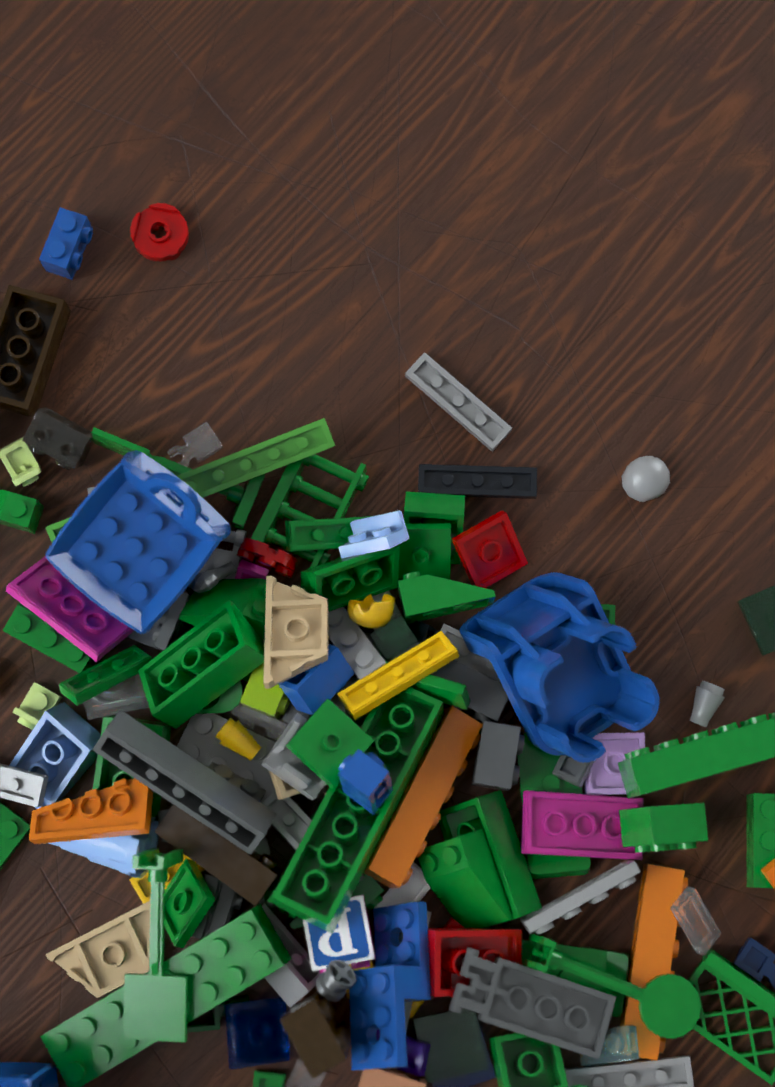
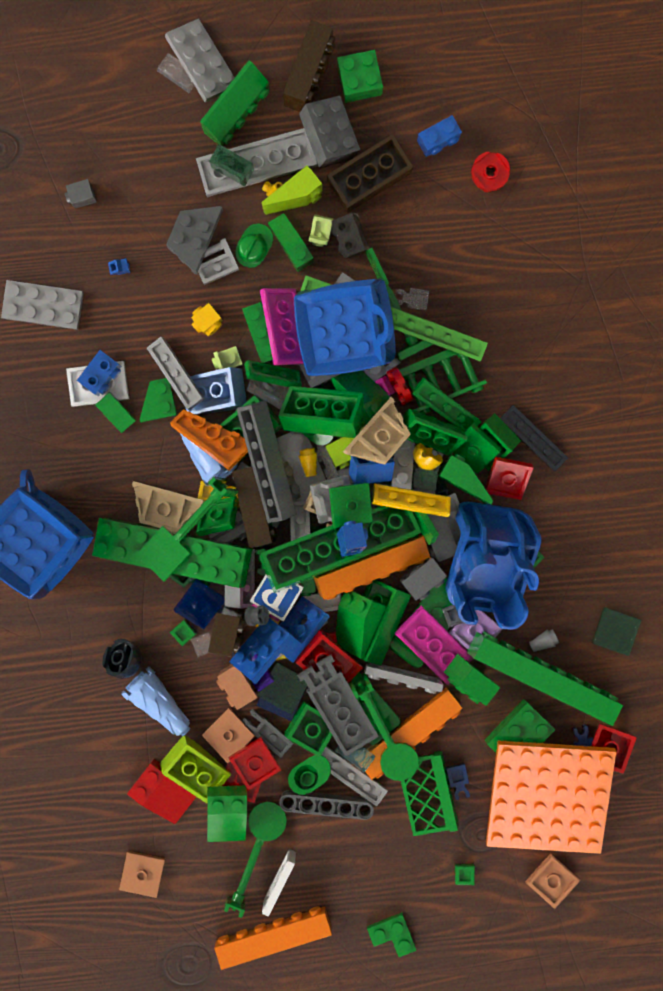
camera: 40 degrees right, 10 degrees up
(209, 579) = (366, 373): dark grey rock -> none
(375, 534) = (460, 423): light blue bracket -> none
(458, 402) = (560, 390): light grey plate -> none
(646, 478) = (615, 509): light grey hair -> none
(695, 920) = (446, 734): clear tile -> none

